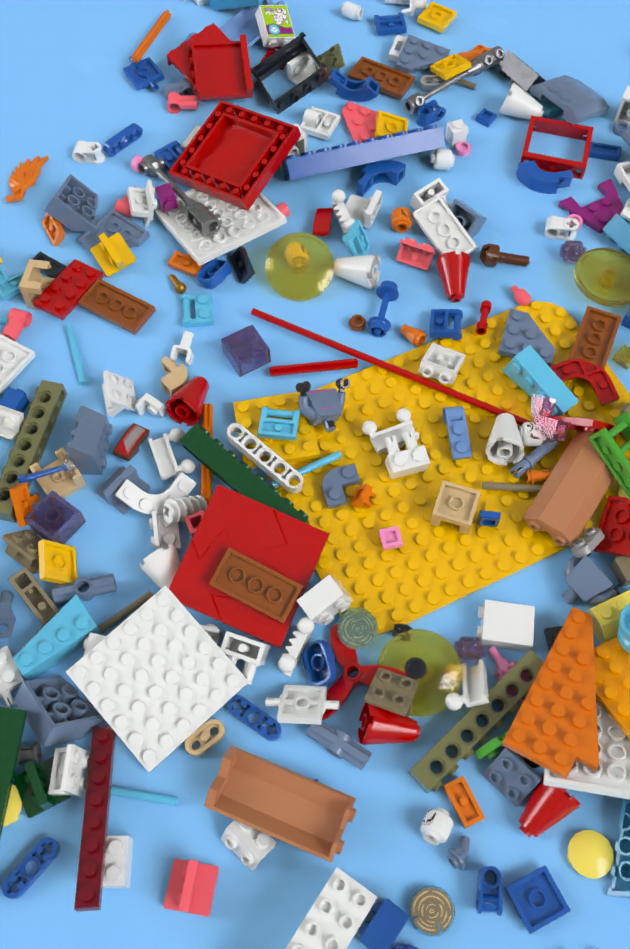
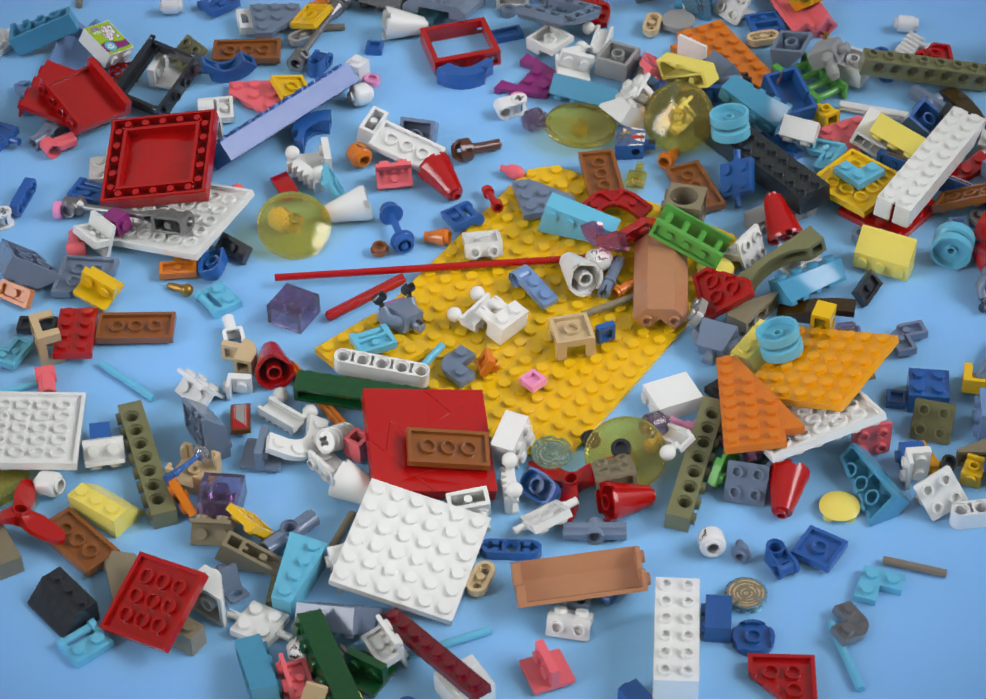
camera: 30 degrees left, 20 degrees down
(463, 802) = (722, 519): orange plate -> none

